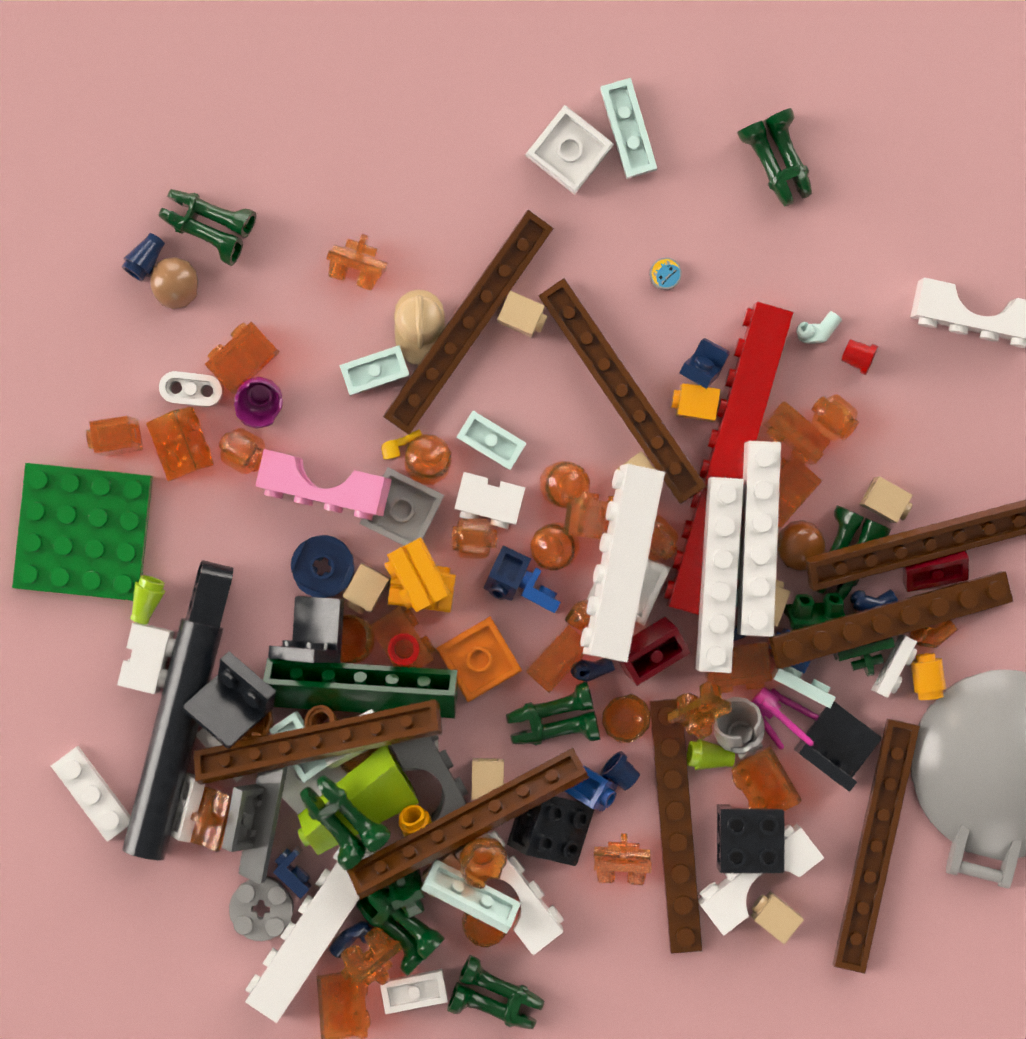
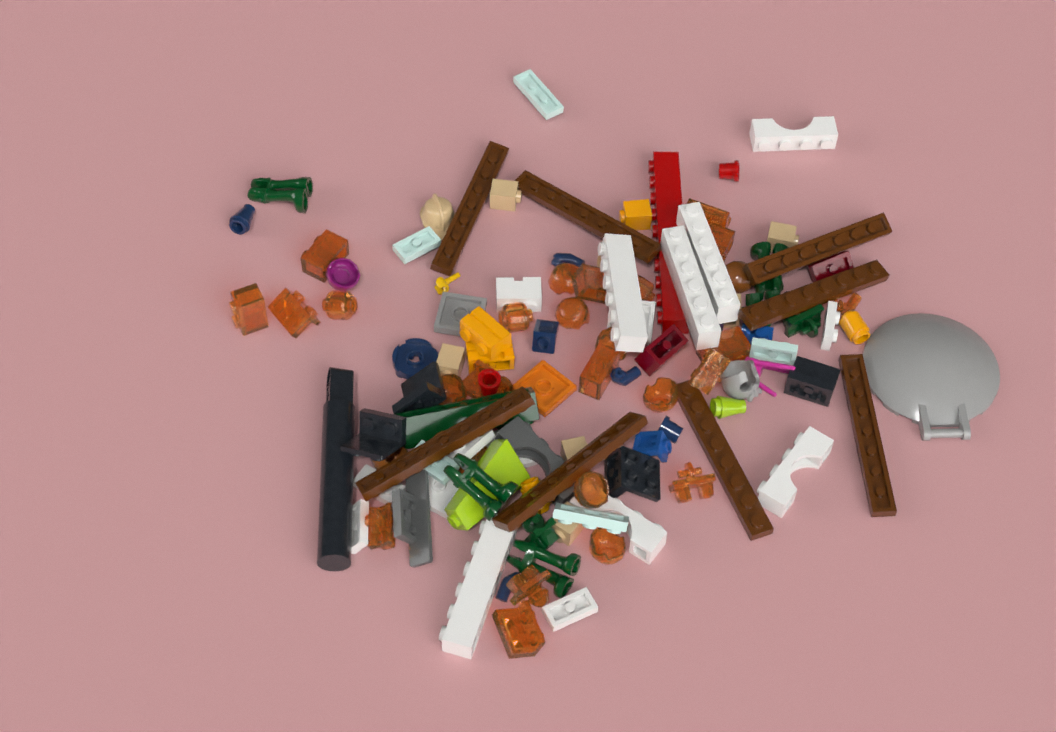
camera: 20 degrees left, 35 degrees down
(82, 531) = (236, 380): green plate -> none
(92, 793) = (283, 540): white plate -> none
(146, 598) = (293, 404): lime cone -> none
(148, 659) = (303, 441): white brick -> none
(174, 282) = (267, 229): medium nougat hair -> none
(191, 390) = (298, 279): white plate -> none
(272, 923) = (435, 571): light grey plate -> none
(286, 474) = (426, 305): bright pink arch -> none
(294, 878) = (451, 552): dark blue bracket -> none
(369, 267) = (387, 188): clear orange hips -> none
(427, 459) = (469, 283): clear orange hair -> none
(464, 997) = (653, 595): dark green piece -> none
(491, 440) = (508, 264): light aqua plate -> none
(543, 596) = (572, 340): blue bracket -> none
(569, 149) = (505, 111): white plate -> none
(575, 449) = (567, 258): none -> dark blue arm
(577, 701) = (595, 411): dark green piece -> none
(665, 273) = (589, 159): tile -> none
(705, 363) = (633, 191): dark blue bracket -> none
(750, 840) = (775, 443): black bracket -> none
(756, 137) = (647, 98): dark green piece -> none
(765, 781) = (774, 412): clear orange bracket -> none
(776, 916) = (817, 492): tan brick -> none
(820, 332) = (693, 168): light aqua arm -> none
(834, 417) = (729, 201): clear orange head -> none

